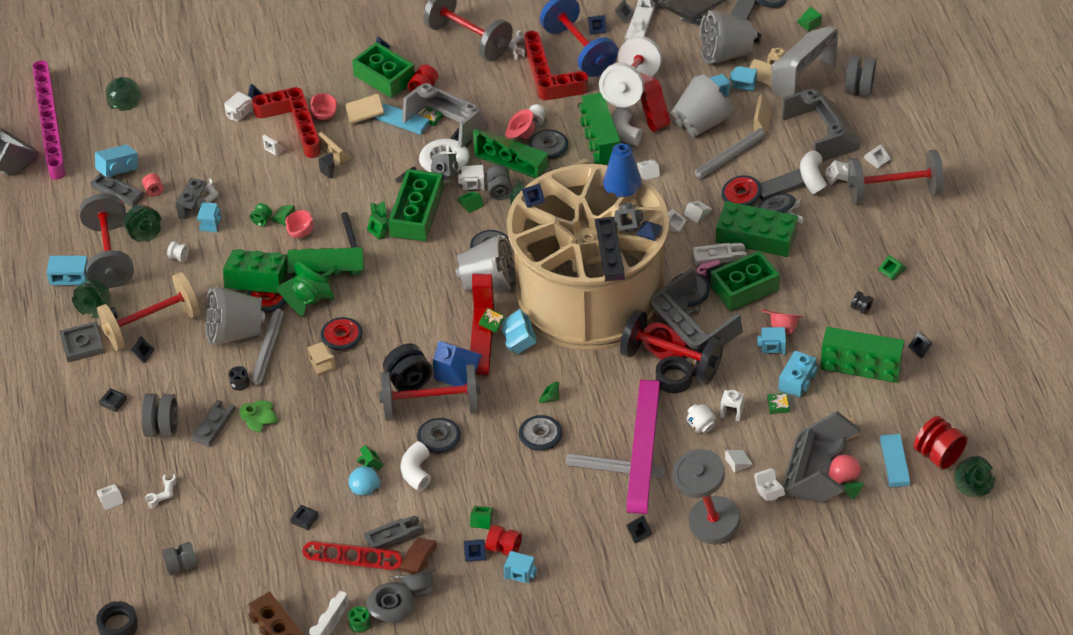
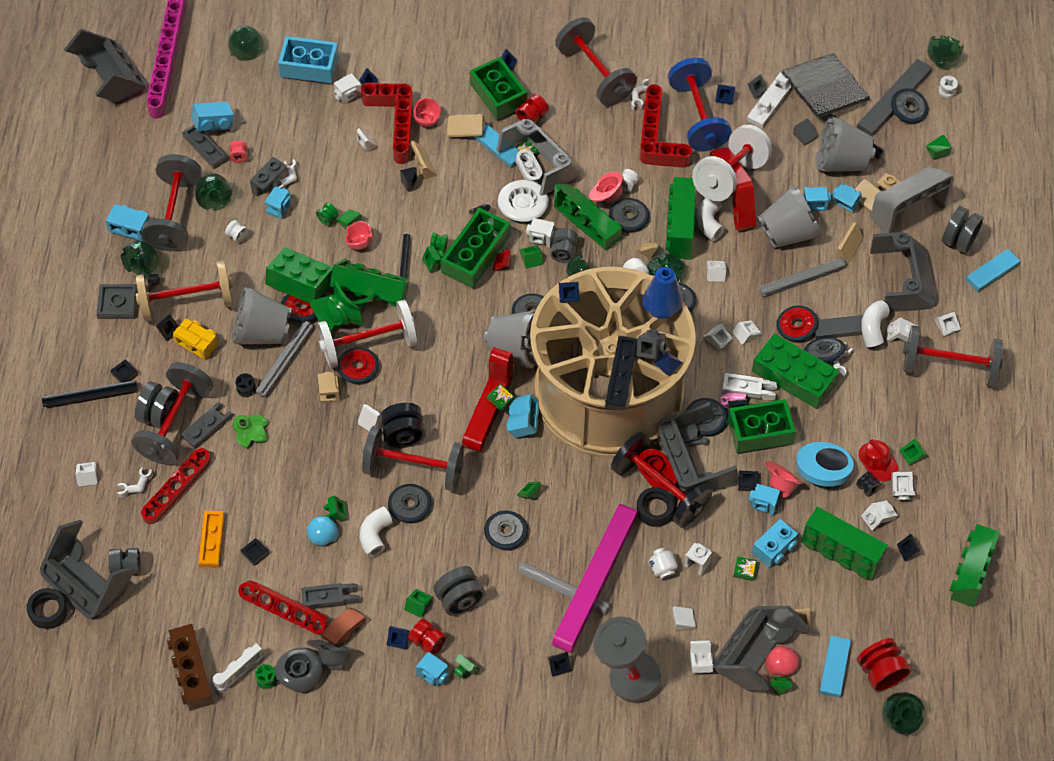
camera: 15 degrees right, 10 degrees up
(86, 426) = (89, 393): none -> black axle
(146, 595) = (75, 579): none -> dark grey windscreen
(173, 448) = (189, 381): none -> dark grey piece
(174, 351) = (195, 338): none -> yellow brick
(191, 91) = (308, 59): none -> medium azure brick
(203, 490) = (172, 494): none -> red beam
(257, 518) = (211, 539): none -> light orange tile
(371, 374) = (368, 417): none -> white slope
(376, 283) = (406, 323): none -> white piece
(440, 129) = (528, 167): none -> white plate
(445, 164) = (516, 213): dark grey brick -> none
(445, 211) = (502, 260): none -> red slope
(451, 363) = (447, 429): blue slope -> none
(519, 491) = (459, 590): none -> dark grey wheel
(550, 555) = (465, 666): none -> green tile
(683, 37) = (805, 132): none -> dark grey slope
(750, 331) = (747, 480): none -> black tile
(815, 296) = (824, 464): none -> medium azure piece
(861, 279) = (878, 460): none -> red piece
(881, 324) = (878, 513): none -> white bracket
(893, 295) = (902, 485): none -> white bracket
(899, 104) = (992, 270): none -> medium azure tile
(986, 343) = (975, 565): none -> green wedge

